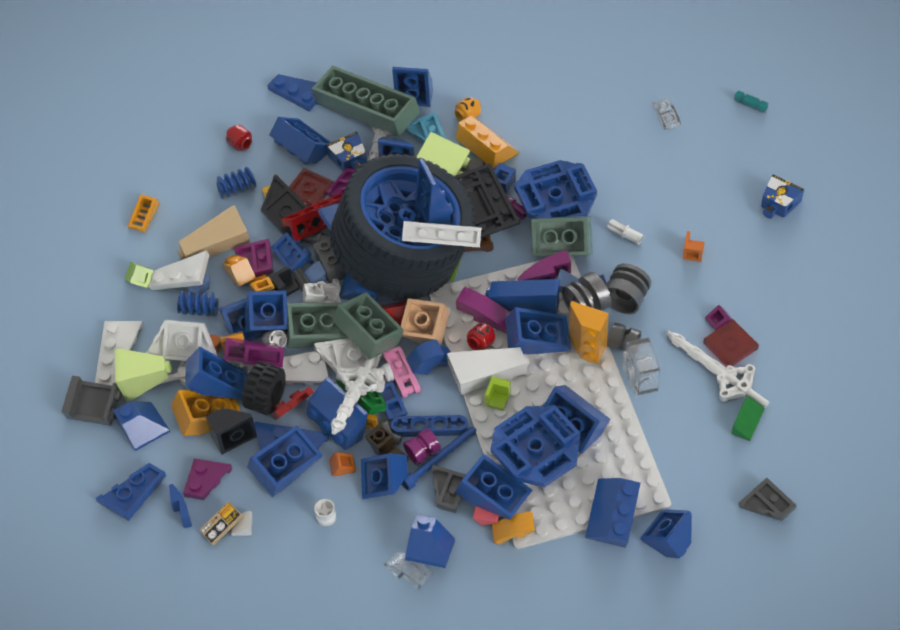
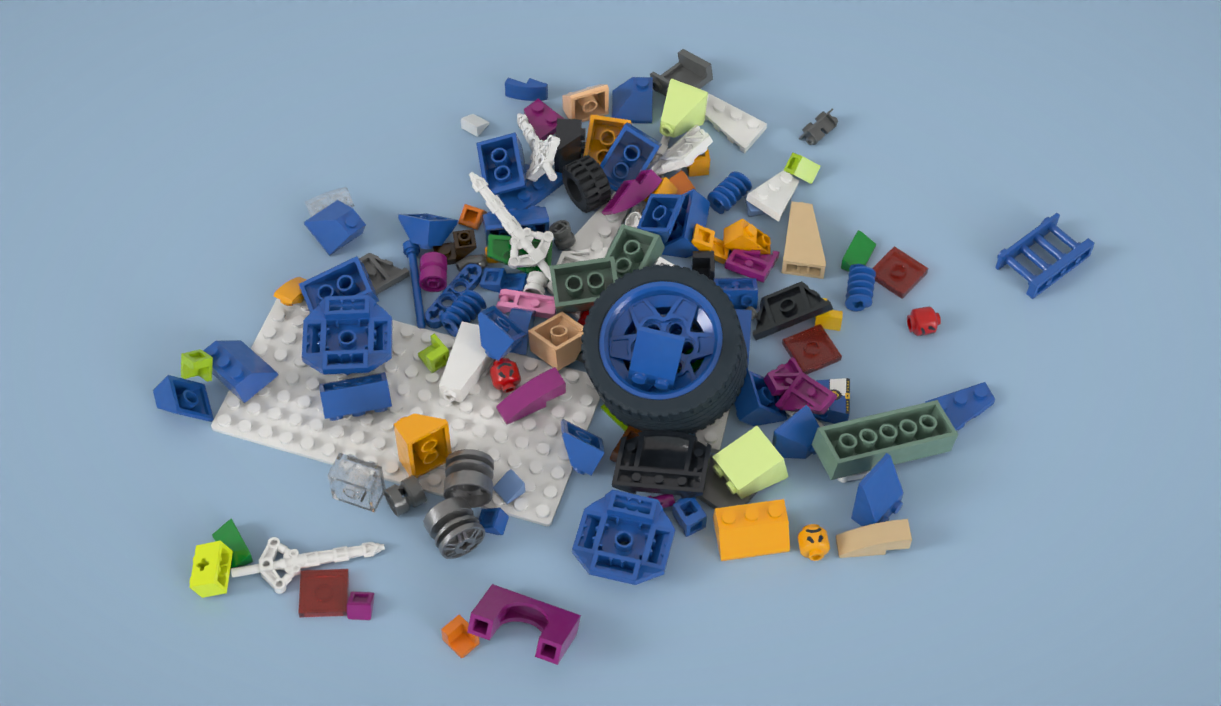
camera: 120 degrees right, 0 degrees up
(85, 288) = (813, 132): none -> dark grey hinge
(124, 86) = (1050, 273): none -> blue fence
(132, 493) = (568, 67): blue wing -> none
(143, 200) = (885, 217): light orange slope -> none
(167, 448) = (587, 101): none -> light nougat slope
(200, 174) = (899, 272): none -> clear red tile
(200, 204) = (858, 251): none -> green slope
(221, 523) = (485, 107): tile -> none
(254, 437) = (543, 151): none -> white bar
(296, 398) = (559, 203): red wing -> none
(299, 139) = (881, 371): blue slope -> none
(307, 215) = (763, 324): red fence -> none
(319, 375) = (561, 231): none -> dark grey wheel
(325, 512) = (432, 176): white wheel -> none
(361, 150) = (806, 392): none -> magenta wing
(423, 126) = (809, 490): medium azure wing -> none
(441, 234) = (603, 348): white fence -> none
(442, 82) = (874, 539): none -> tan slope
(445, 402) = (462, 310): none -> blue piece
(457, 342) = (498, 333): none -> blue slope
(500, 258) = (582, 447): none -> blue slope
(526, 294) = (517, 432): blue slope -> none
(537, 331) = (473, 418): blue slope -> none
(548, 267) = (534, 475): magenta slope -> none
(562, 234) = (561, 514): sand green slope -> none
(625, 231) = (533, 586): white axle -> none
(638, 529) = (196, 364): none -> lime panel
(643, 197) = (504, 606): none -> magenta arch
(768, 501) = (138, 501): dark grey wing -> none
(788, 407) = (211, 569): none -> neon yellow brick

